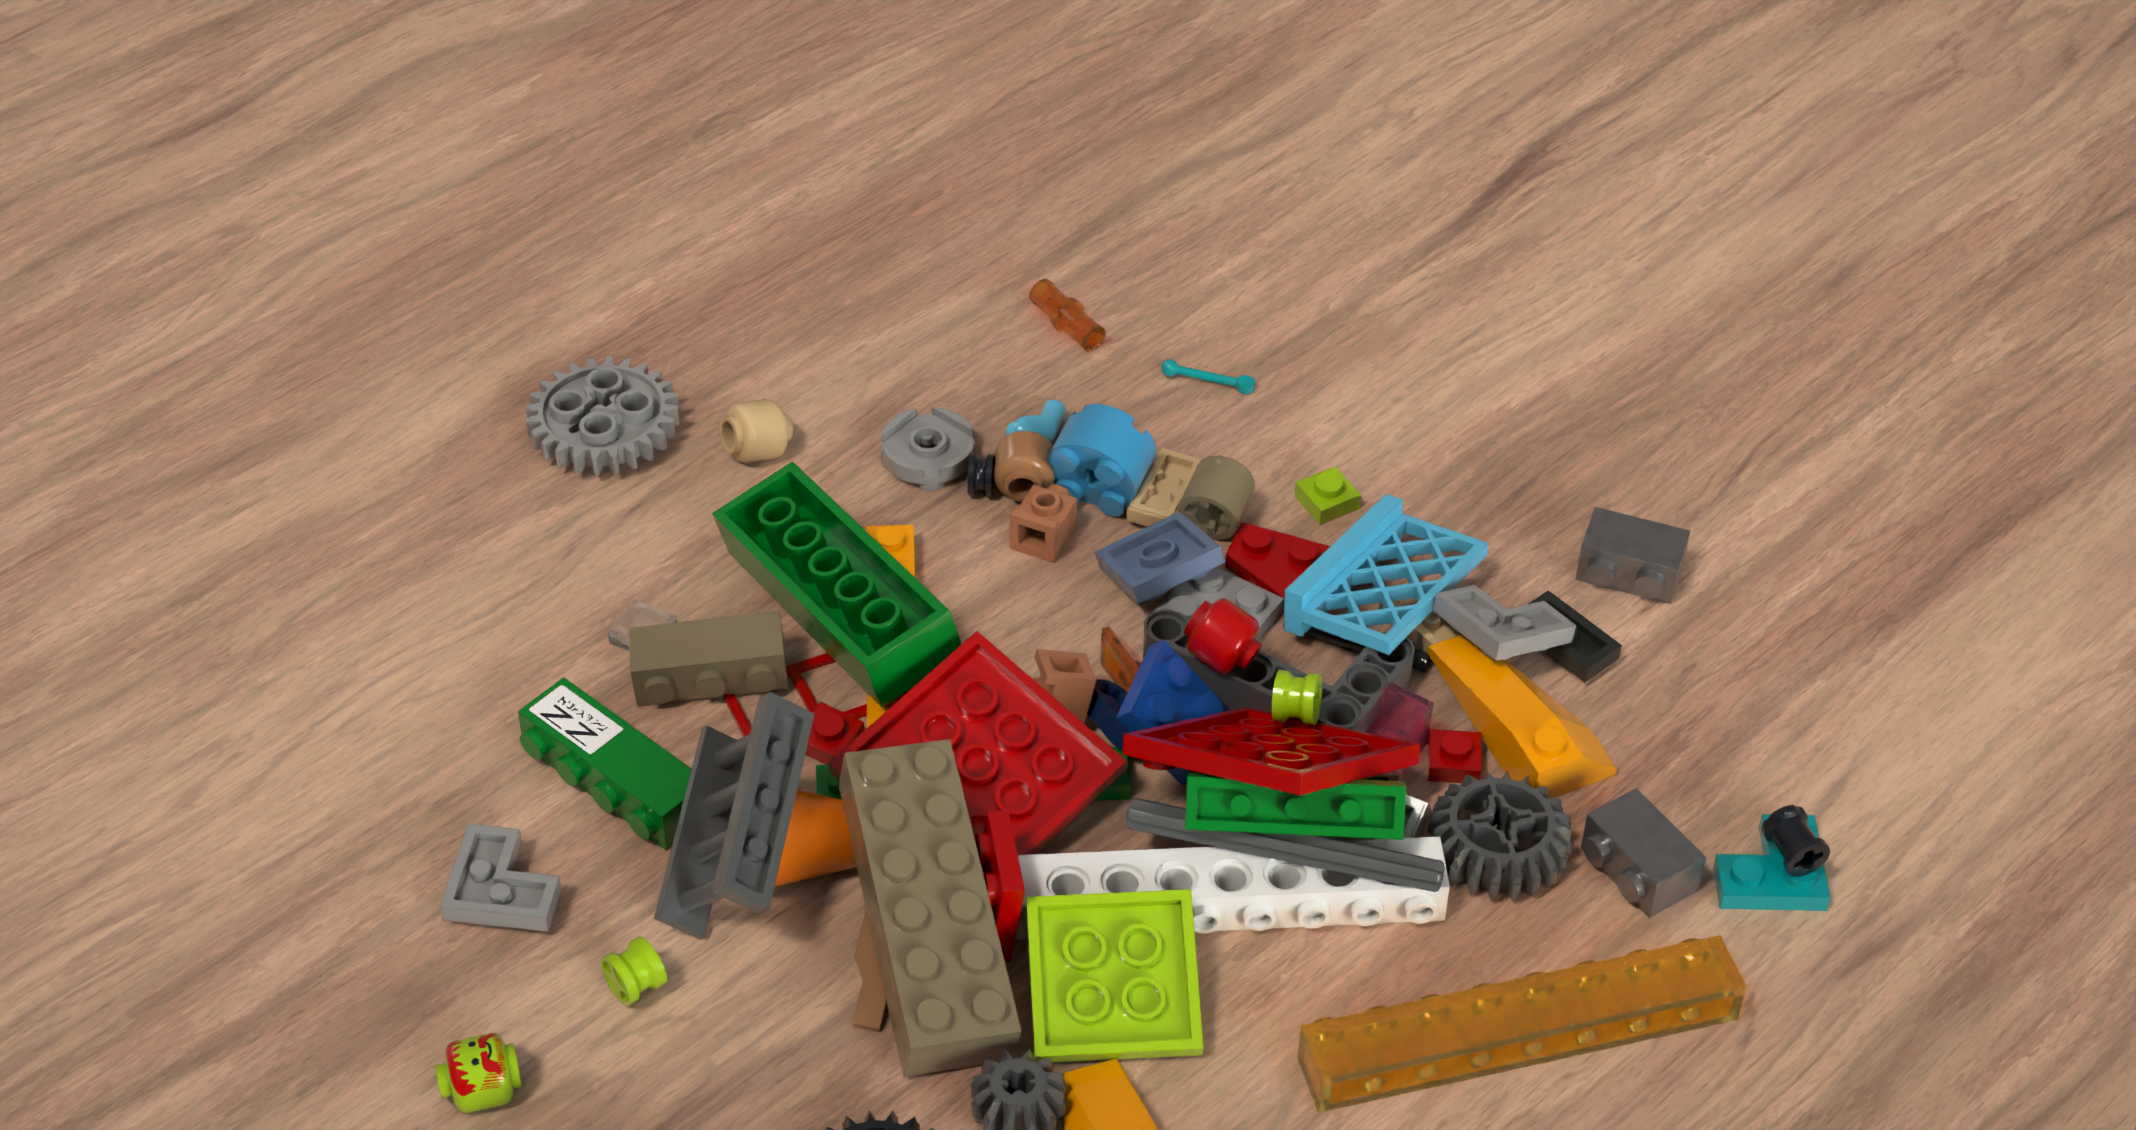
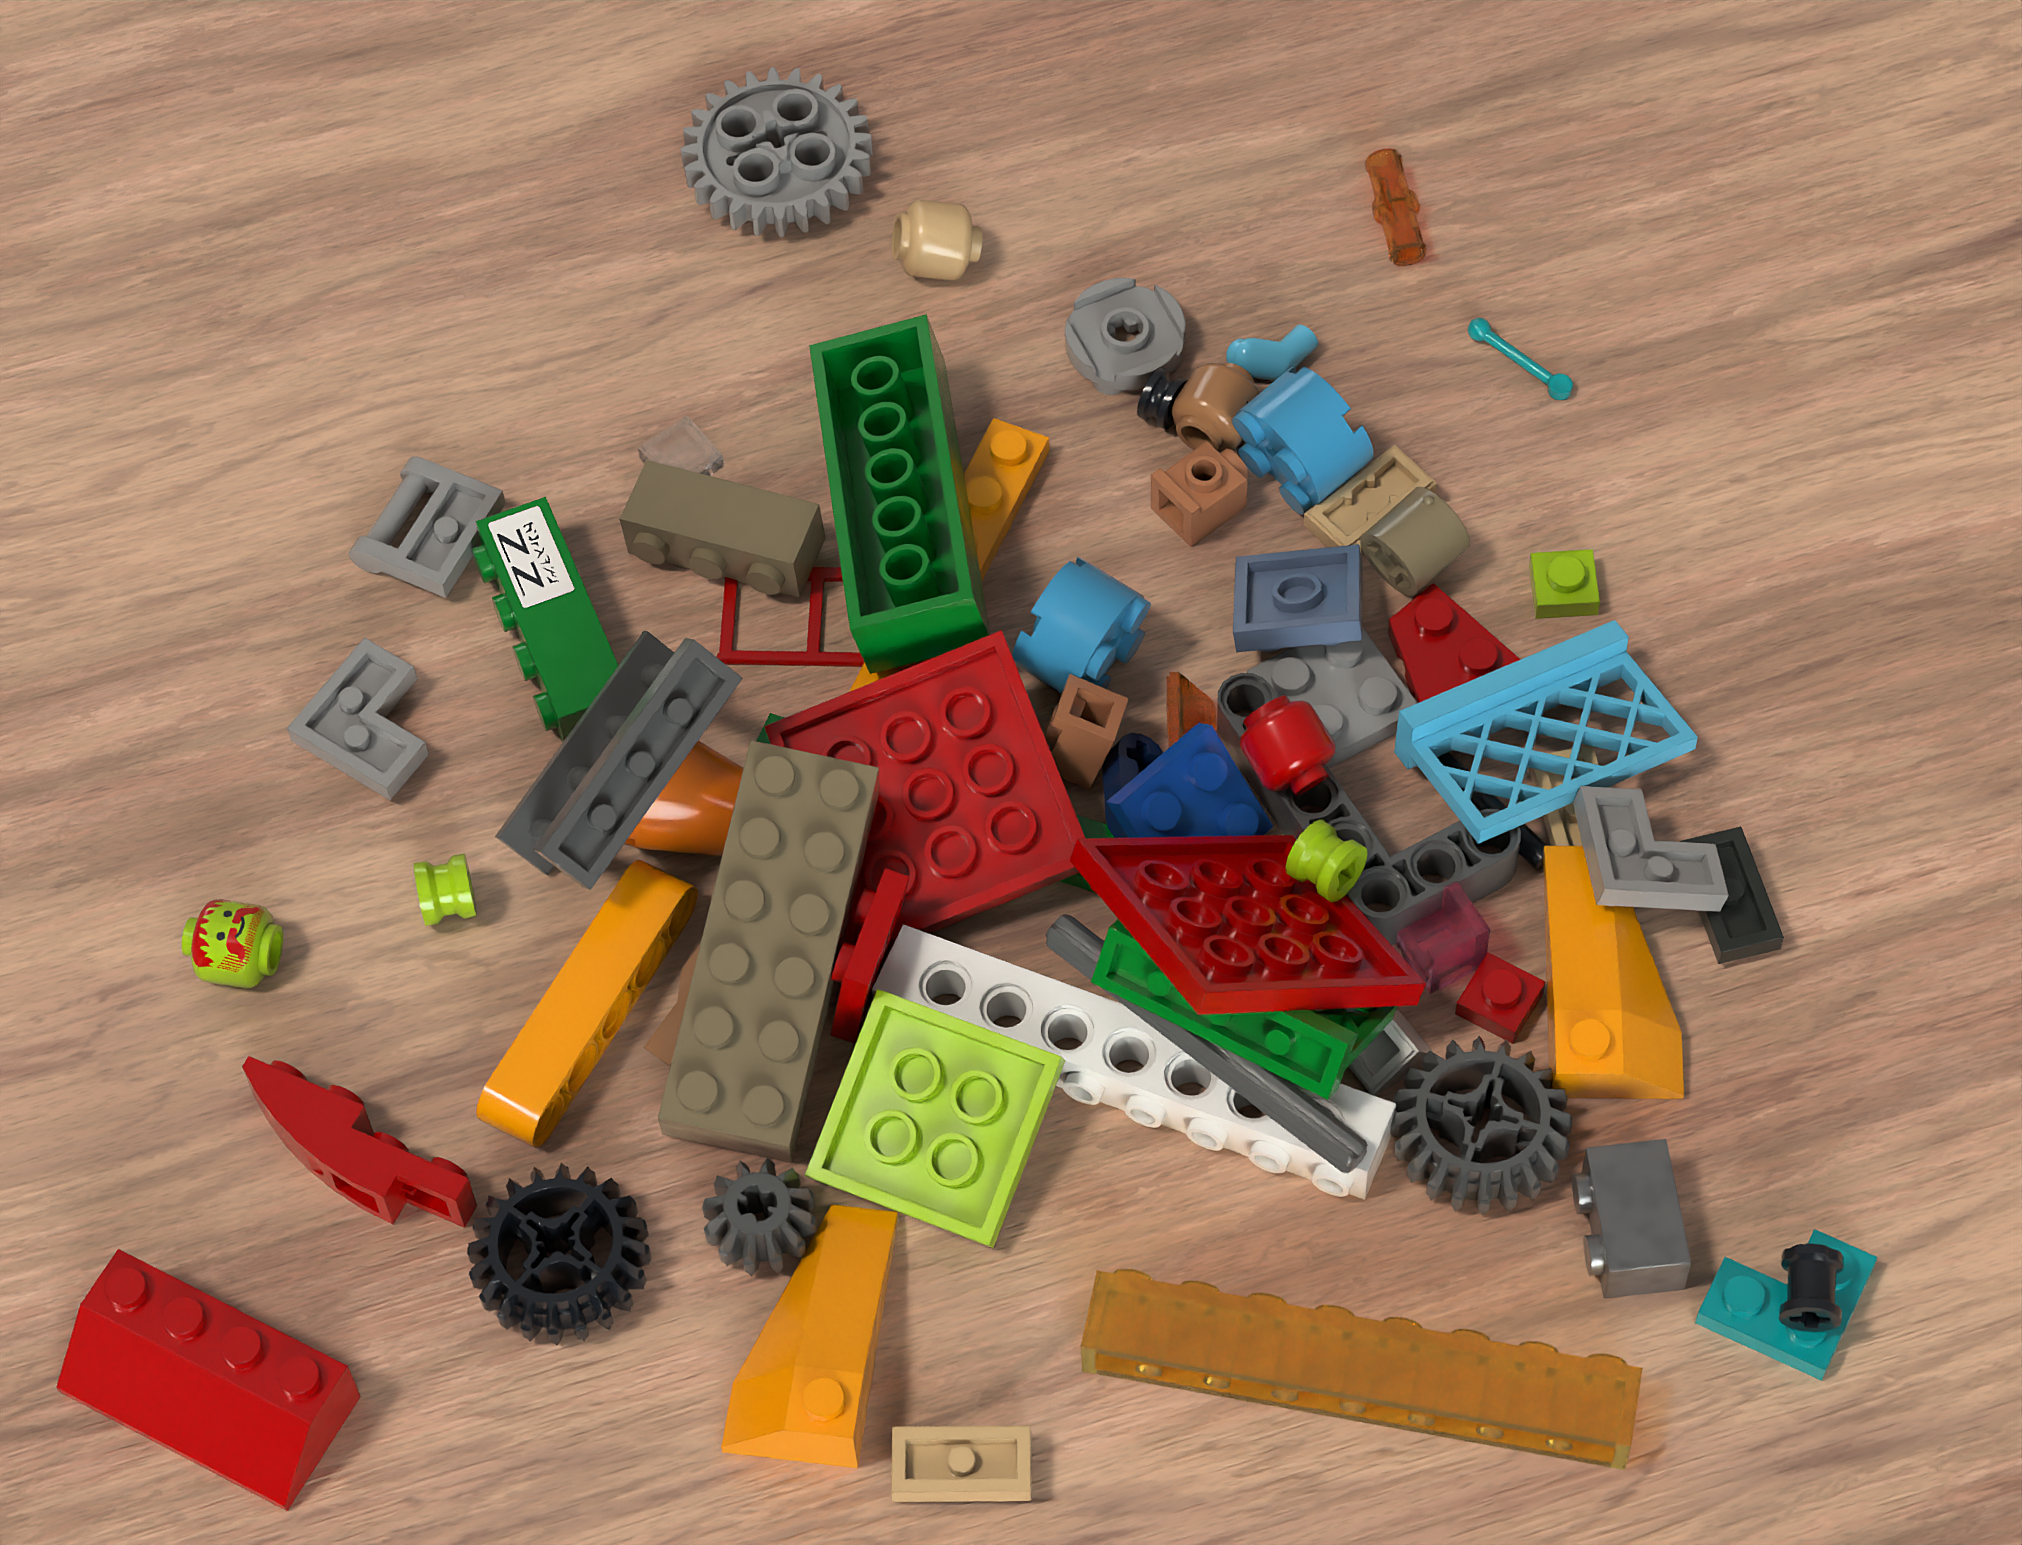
camera: 30 degrees right, 15 degrees up
(487, 742) = (442, 535): none -> light grey plate
(793, 1008) = (586, 1003): none -> light orange beam
(831, 732) = (807, 676): red plate -> none
(1023, 619) = (1081, 627): none -> dark azure brick
(1632, 555) = (1879, 819): flat silver brick -> none

